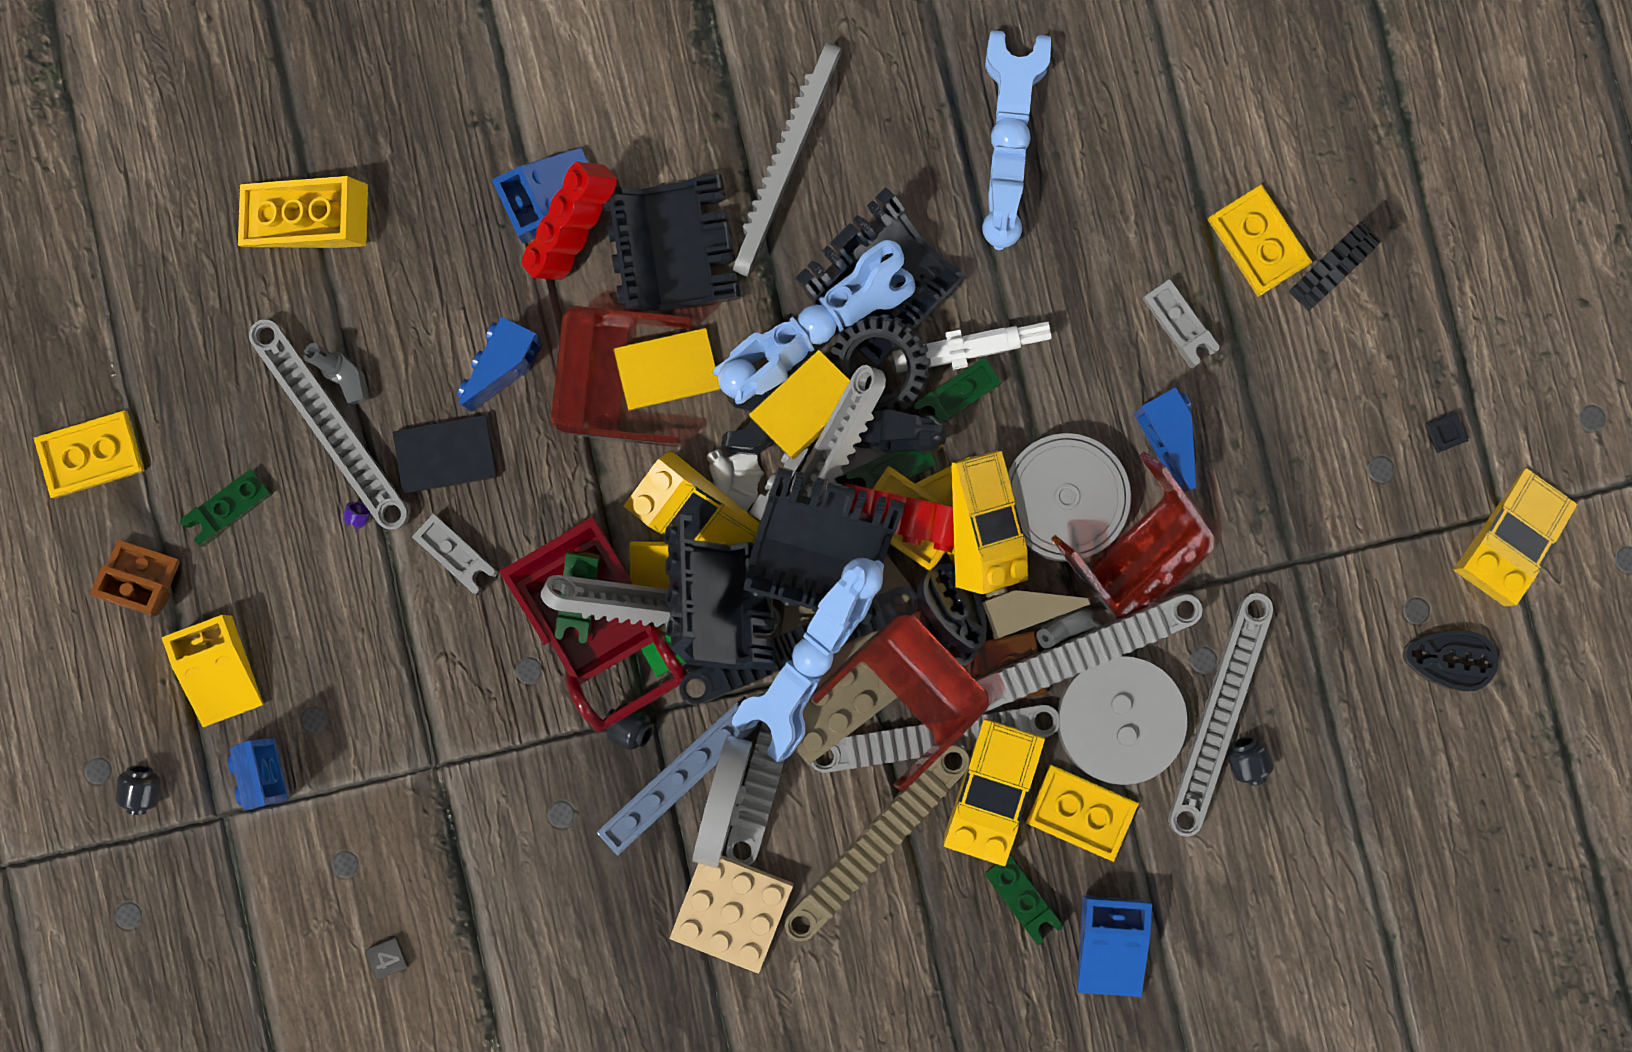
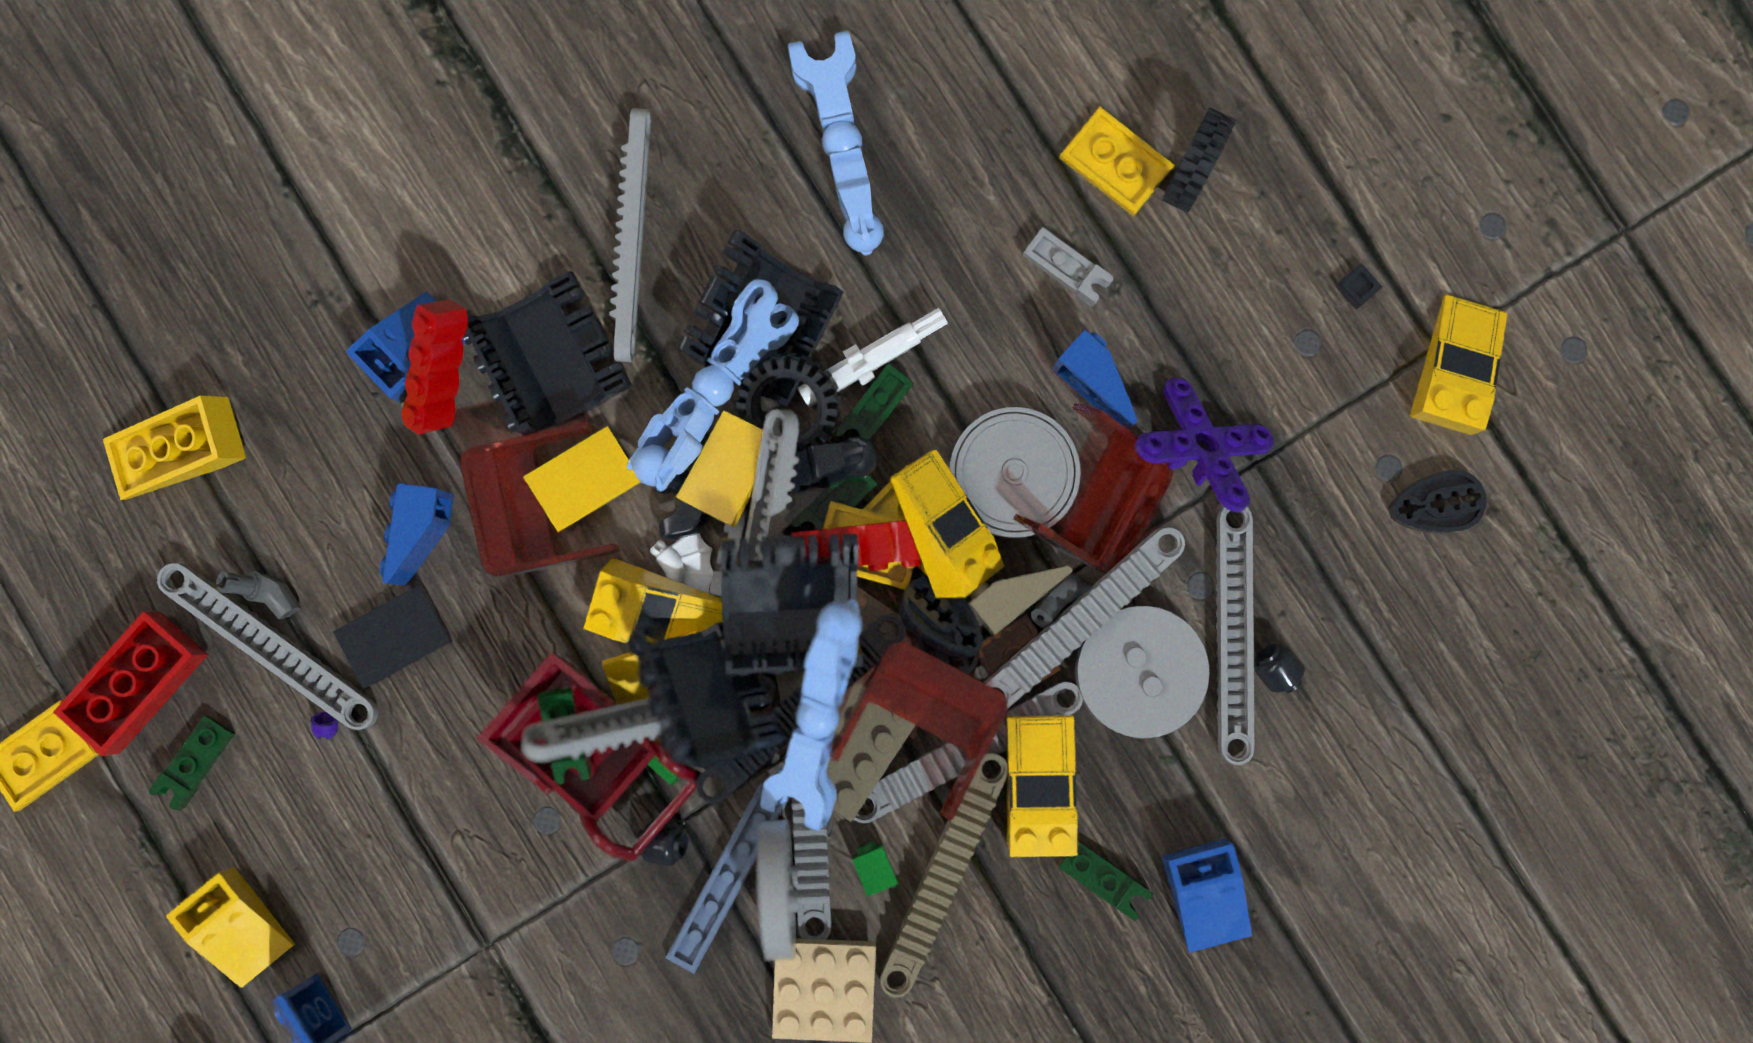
camera: 20 degrees left, 0 degrees up
(136, 578) = (124, 864): dark orange brick -> none
(196, 416) = (130, 683): none -> red brick
(453, 553) = (433, 731): light grey plate -> none
(814, 815) = (874, 868): none -> green brick
(1081, 813) = (1133, 775): yellow tile -> none
(1267, 534) = (1221, 443): none -> dark purple piece

